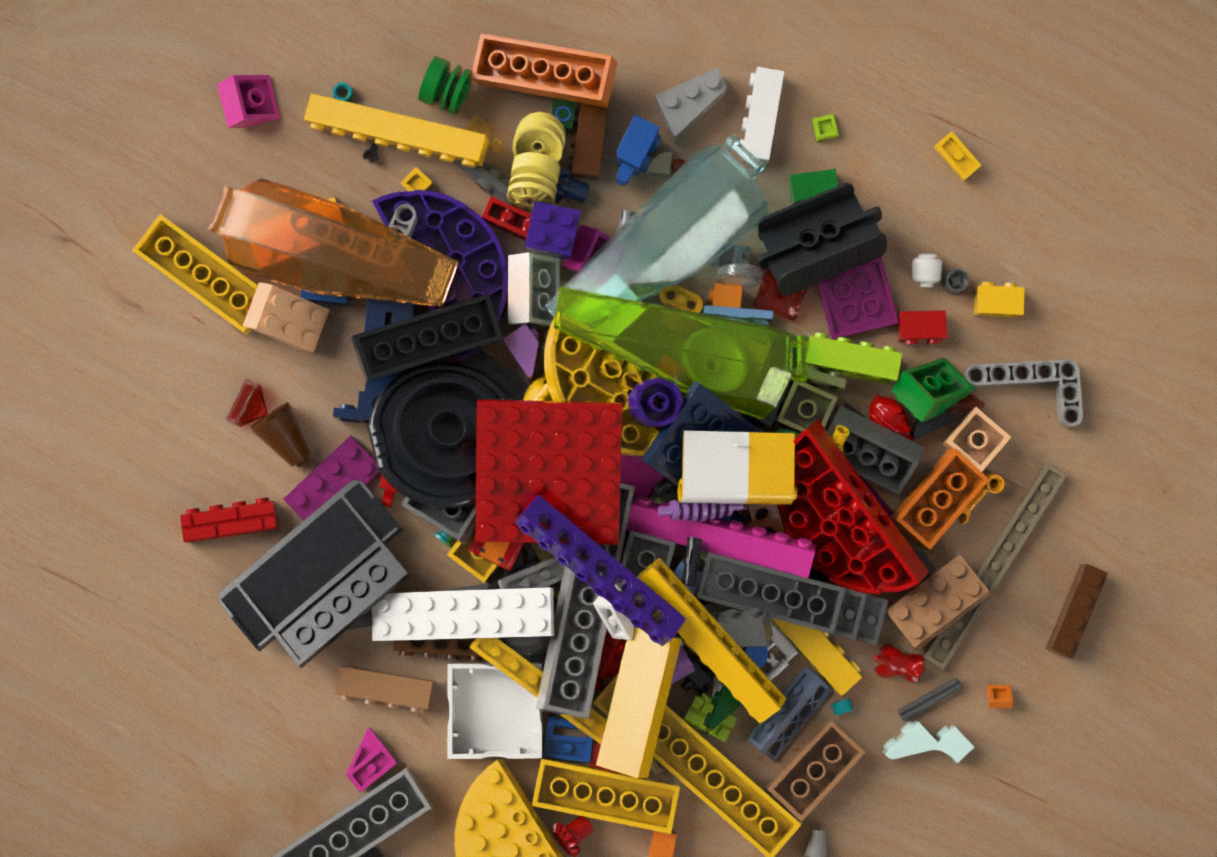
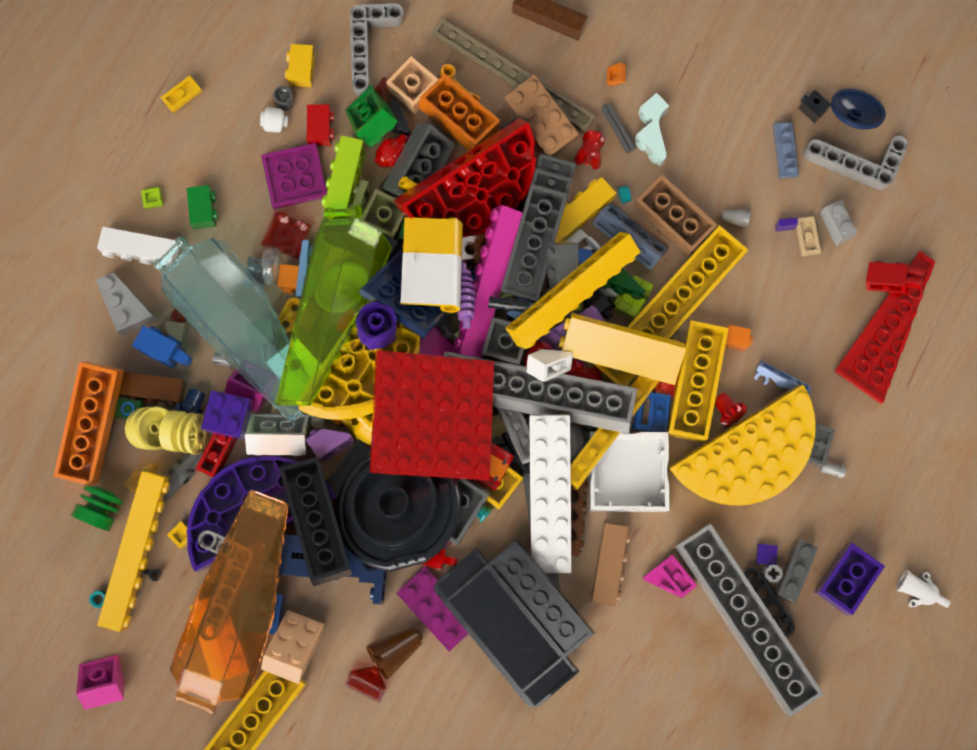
camera: 85 degrees left, 5 degrees down
(230, 521) = (467, 698): red brick -> none
(612, 571) = (516, 373): dark purple brick -> none
(801, 265) = (264, 215): black piece -> none

